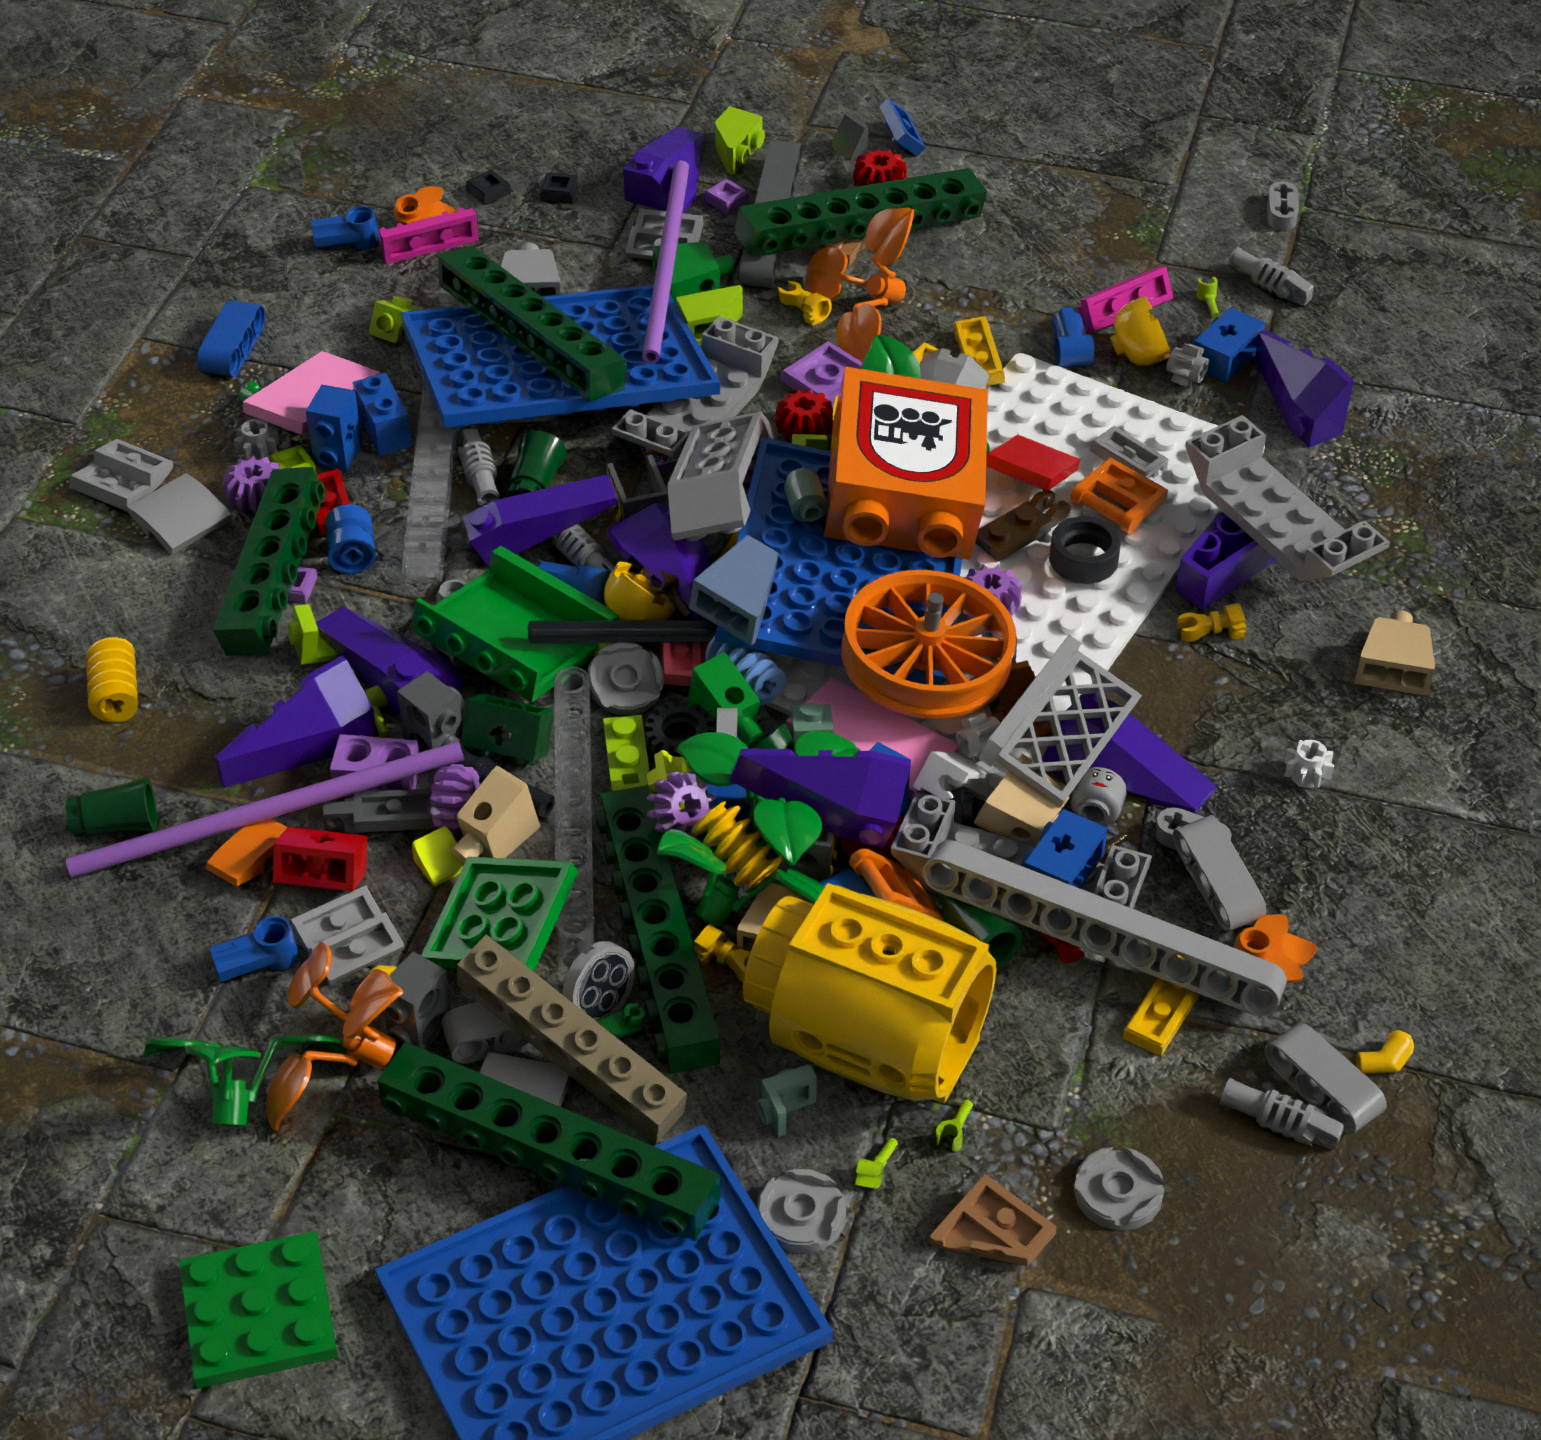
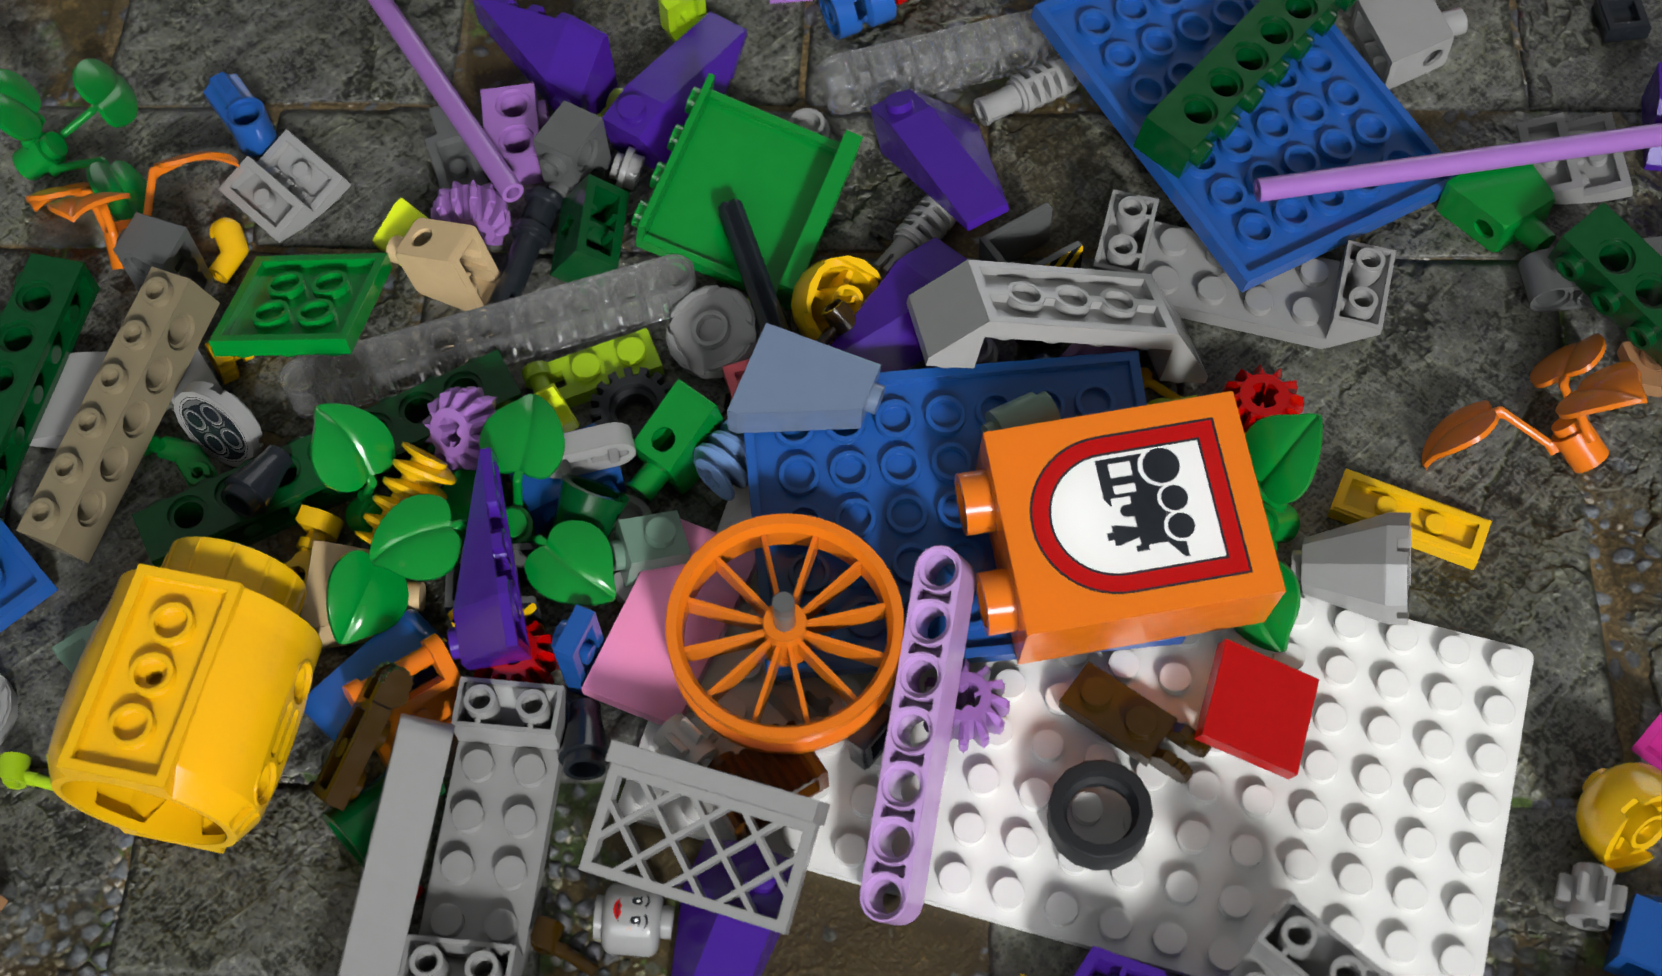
camera: 80 degrees right, 15 degrees up
(246, 852) = (377, 64): orange slope -> none
(320, 859) = (365, 125): red brick -> none
(536, 463) = (1036, 141): dark green plant -> none
(583, 578) = (856, 228): blue piece -> none
(682, 948) = (255, 484): none -> black cone
(705, 307) = (1426, 247): lime slope -> none
(814, 306) = (1507, 365): yellow piece -> none
(820, 371) = (1367, 417): medium lavender plate -> none
(931, 893) = (361, 733): none -> dark brown hinge
(948, 772) = (598, 716): white hinge -> none
(954, 1126) = (86, 850): lime hand -> none
(977, 341) = (1499, 596): yellow tile -> none
(1018, 809) = (565, 827): tan torso -> none
(1038, 600) = (928, 759): none -> lavender beam
(1068, 849) = (503, 910): blue brick -> none
(1071, 342) = (1573, 722): blue piece -> none
(1105, 448) = (1323, 882): light grey tile -> none
(1124, 487) = (1254, 851): orange plate -> none

